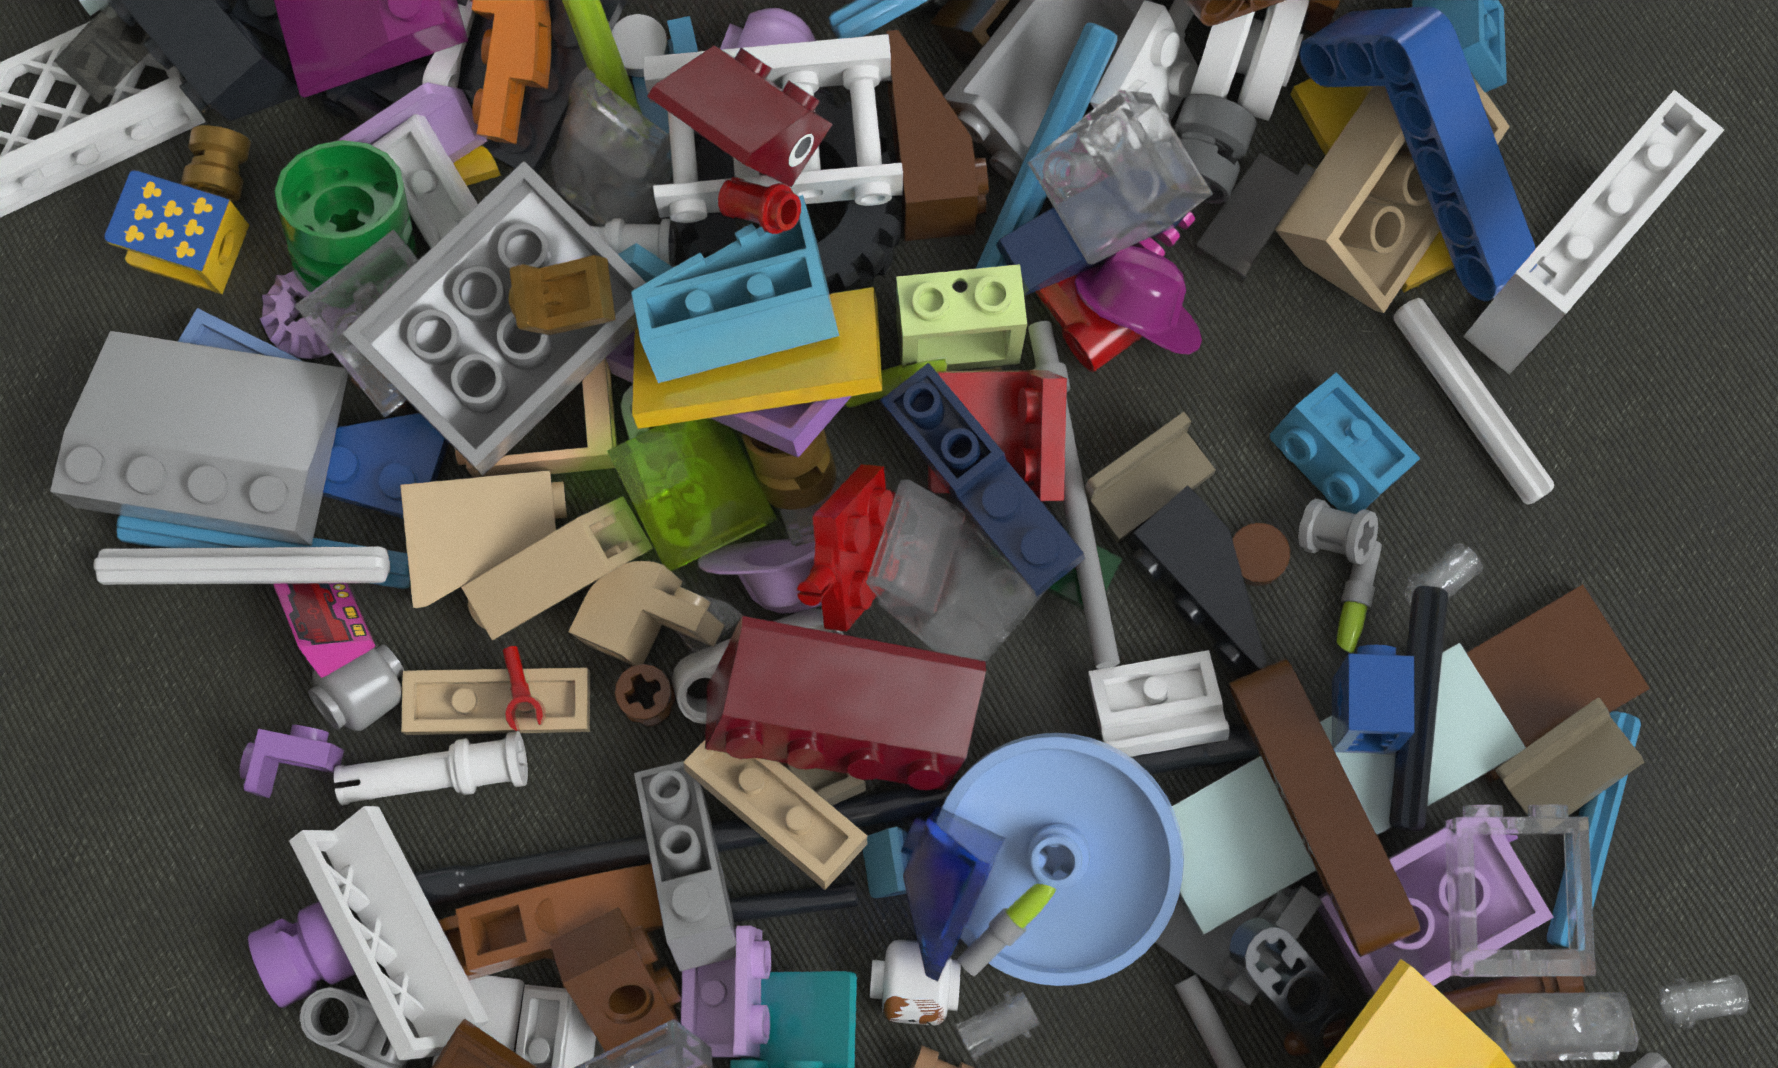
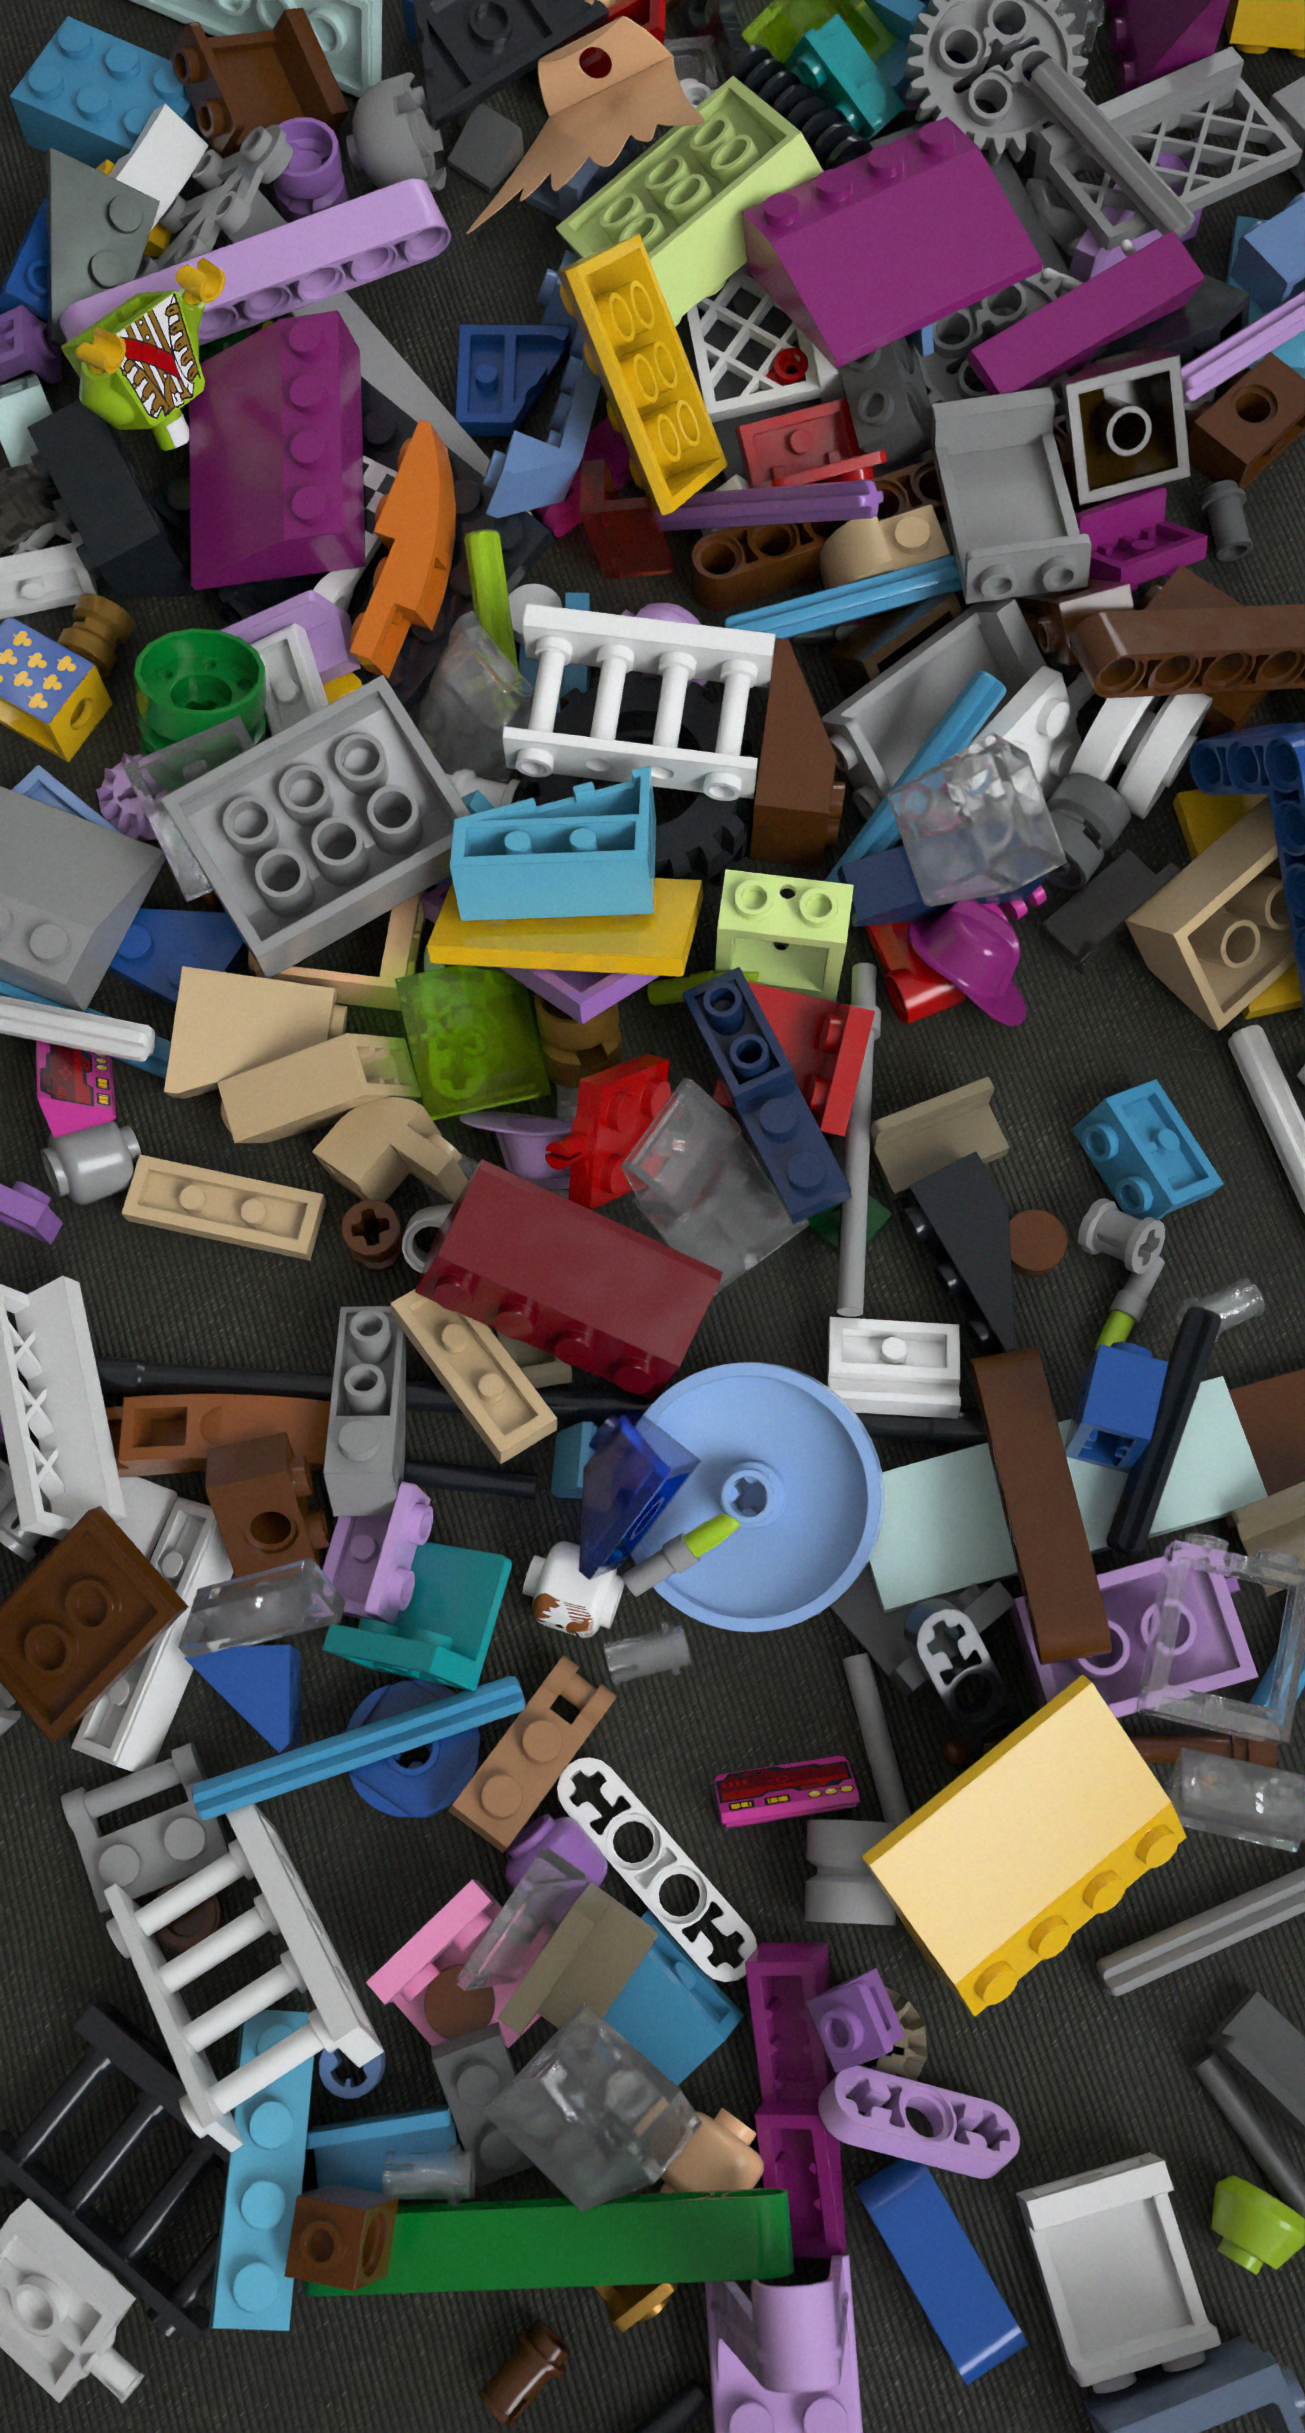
camera: 15 degrees right, 5 degrees down
(461, 767) = (172, 1263): white pin -> none
(519, 689) = (248, 1200): red hand -> none
(561, 295) = (383, 807): pearl gold bracket -> none
(745, 112) = (612, 667): dark red slope -> none
(772, 207) = (614, 766): red pin -> none

